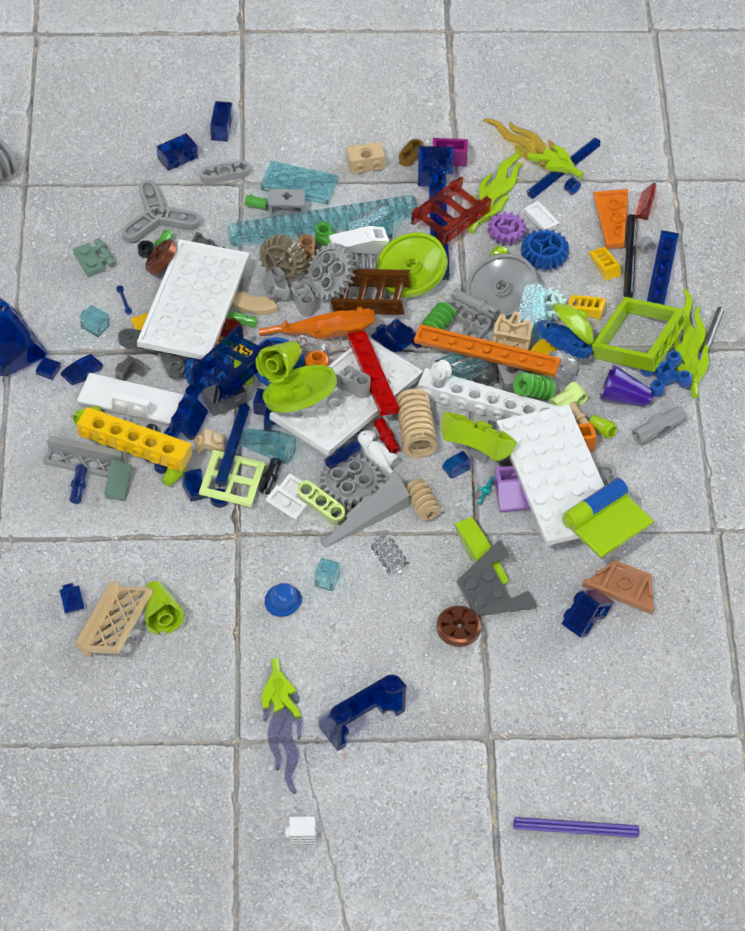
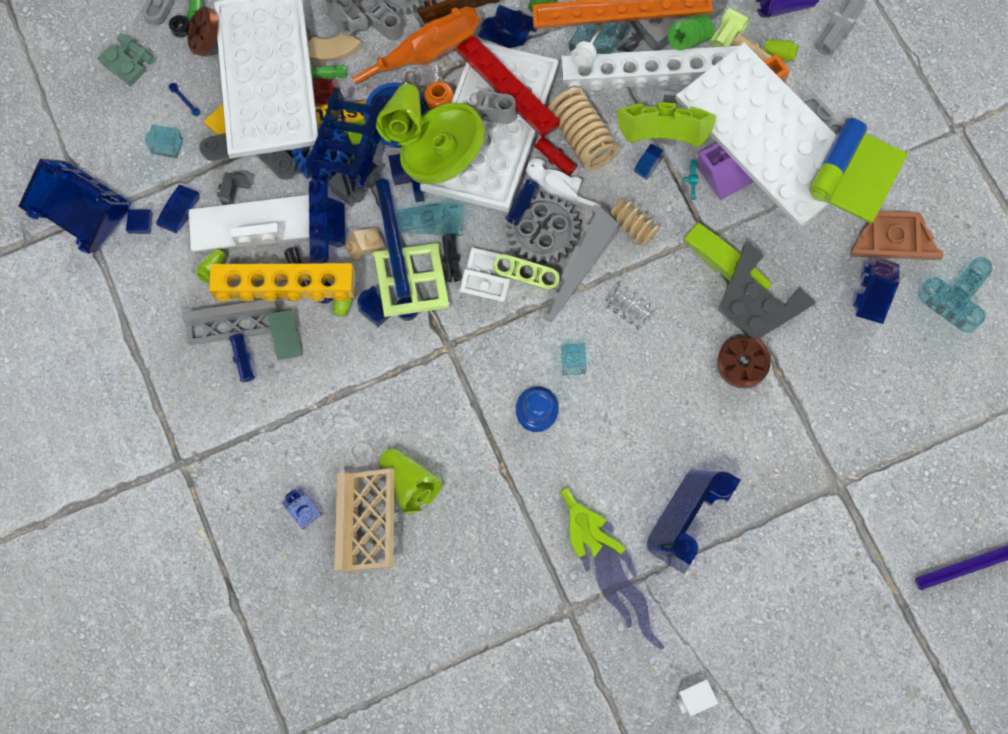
camera: 15 degrees left, 20 degrees up
(651, 644) = (958, 296): none -> clear light blue beam

